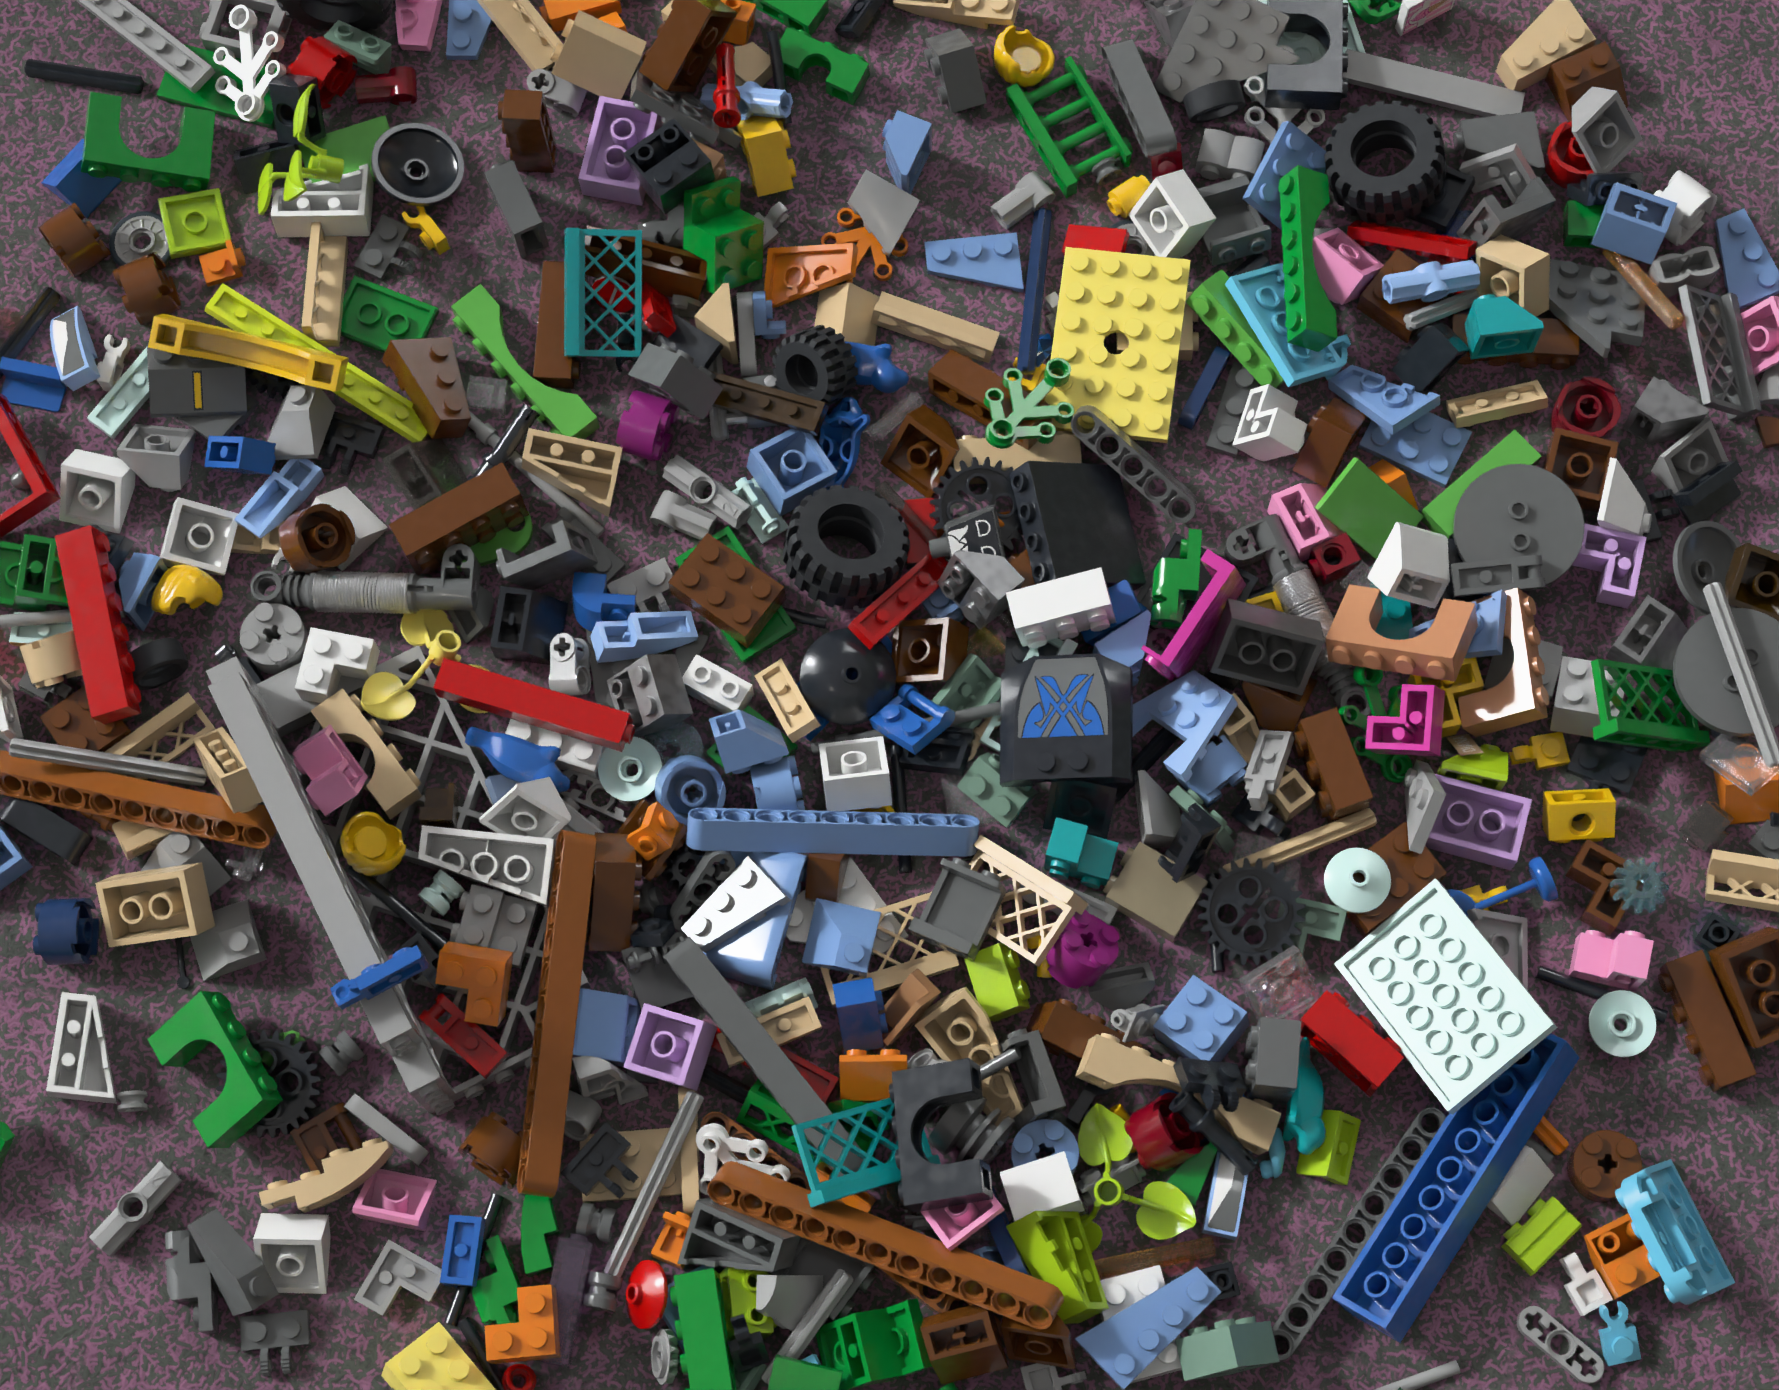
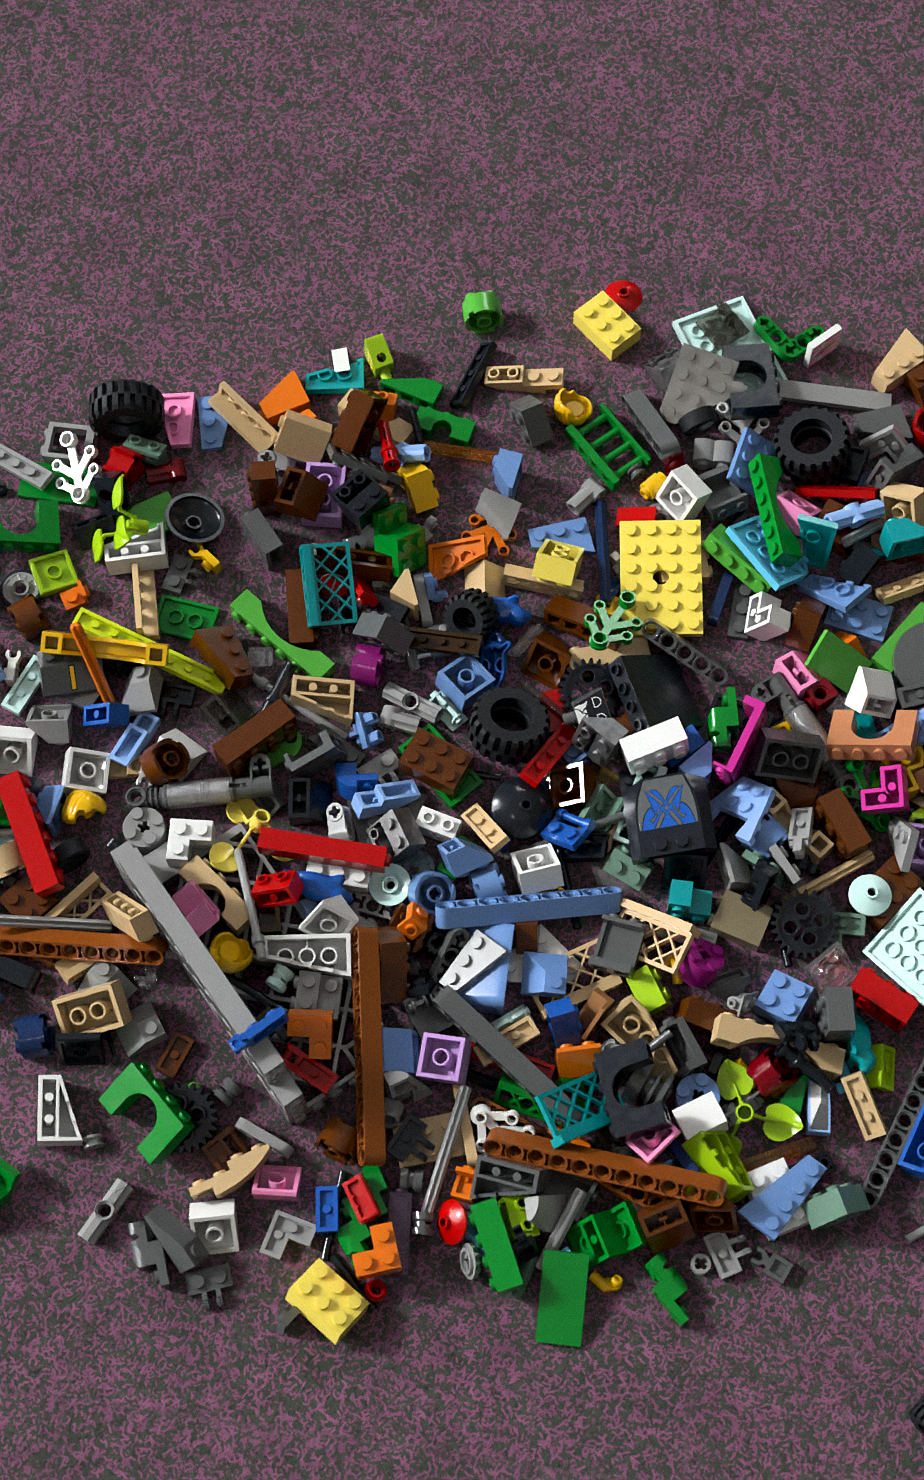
camera: 10 degrees left, 5 degrees down
(131, 959) = (81, 1048): none -> black plate
(227, 374) = (92, 662): none -> orange axle
(272, 987) = (175, 1055): none -> reddish brown plate
(412, 829) = (257, 937): none -> light grey bar
(455, 756) = (277, 889): none -> red brick
(514, 1242) = (361, 1198): none -> red plate
(580, 147) = (300, 494): none -> reddish brown slope
(628, 527) = (364, 732): none -> medium blue hips
(838, 106) = (461, 451): none -> clear orange axle
(960, 301) = (558, 562): none -> light yellow brick
(1240, 828) = (790, 872): none -> light grey plate
(1296, 1201) = (864, 1105): none -> tan plate
(1366, 312) = (817, 539): none -> teal wing

